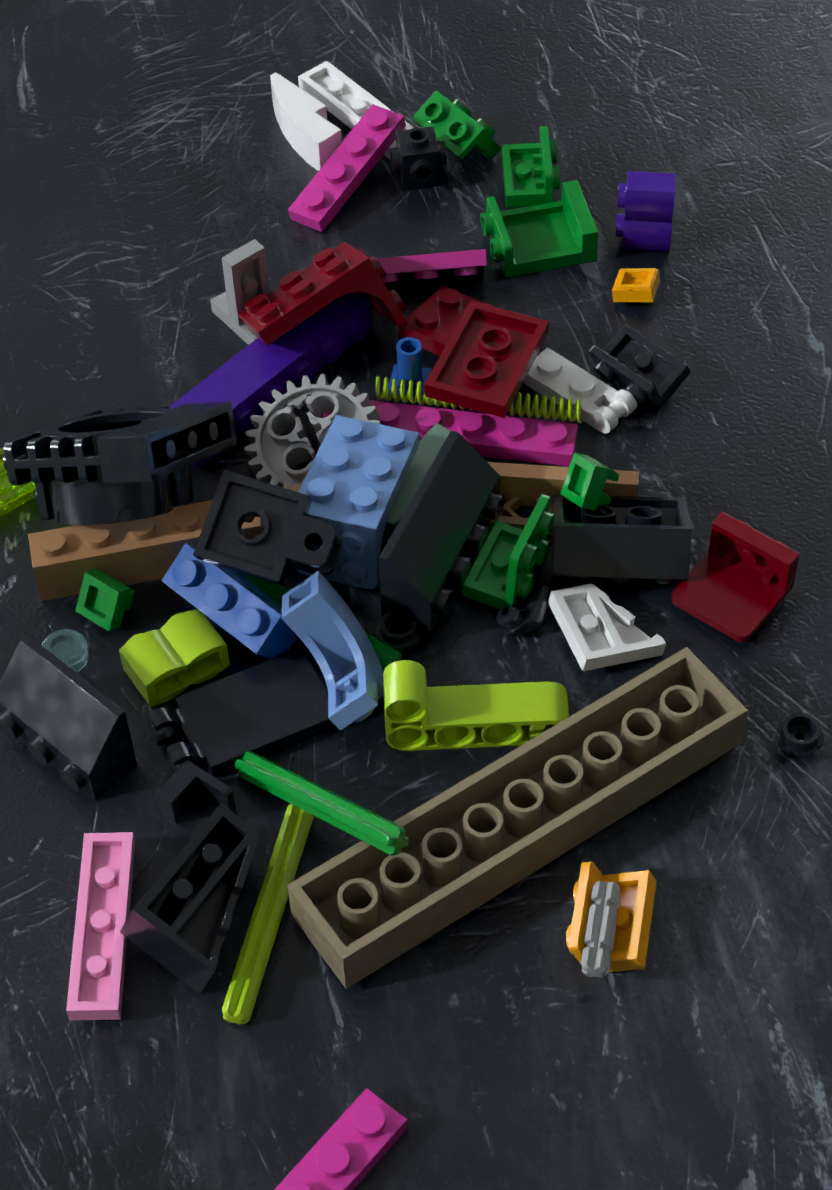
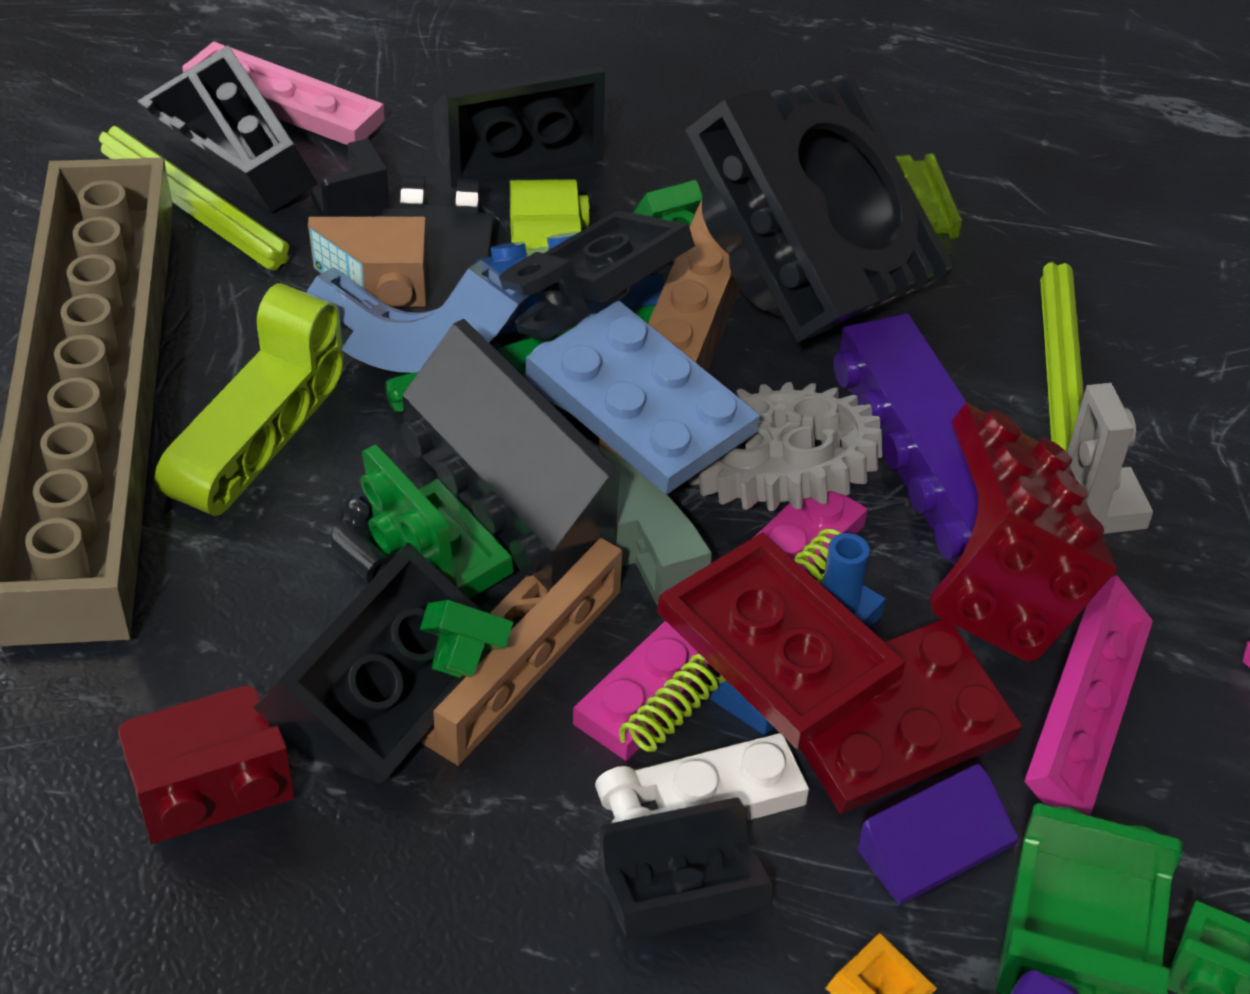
camera: 115 degrees right, 5 degrees down
(68, 647) = (631, 178): clear light blue tile -> none
(128, 358) = (1061, 351): none -> lime axle
(290, 710) = (377, 253): none -> medium nougat slope
(322, 803) = (203, 220): green axle -> none
(531, 299) = (936, 834): none -> dark purple slope
(599, 629) = (267, 589): white wing -> none

